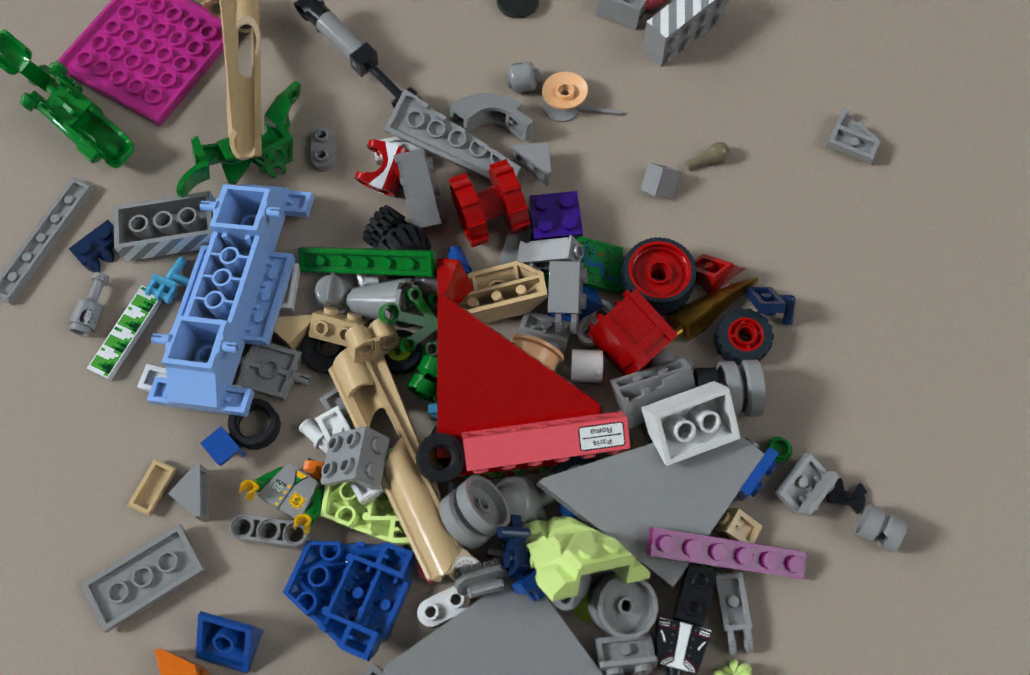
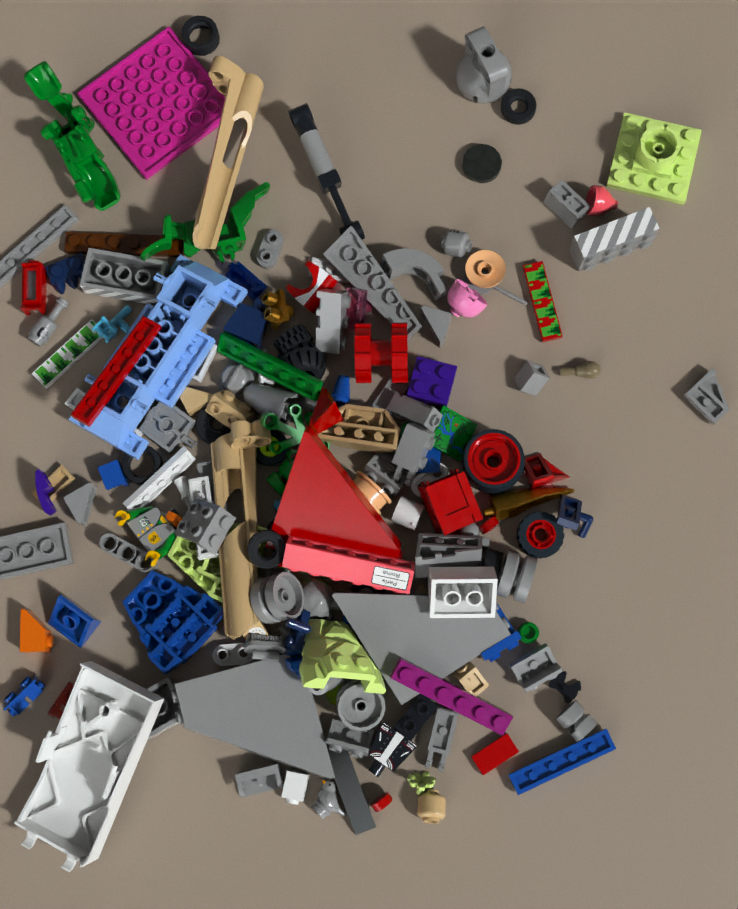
camera: 25 degrees right, 10 degrees up
(61, 273) = (34, 287): none -> red window
(102, 210) = (121, 243): none -> reddish brown plate
(140, 493) = (43, 487): none -> dark purple slope
(186, 319) = (116, 371): none -> red tile
(282, 432) = (160, 479): none -> white tile
(298, 182) = (242, 276): none -> clear blue hinge
(326, 227) = (248, 323): none -> dark blue torso
(353, 201) = (278, 309): none -> pearl gold hips
(443, 169) = (358, 307): none -> clear pink tile
(556, 127) = (465, 300): none -> bright pink cylinder
(637, 105) = (542, 301): none -> tile
(683, 347) = (489, 525): none -> red tile
(804, 606) = (495, 754): none -> red tile
(885, 584) = (562, 761): none -> blue plate

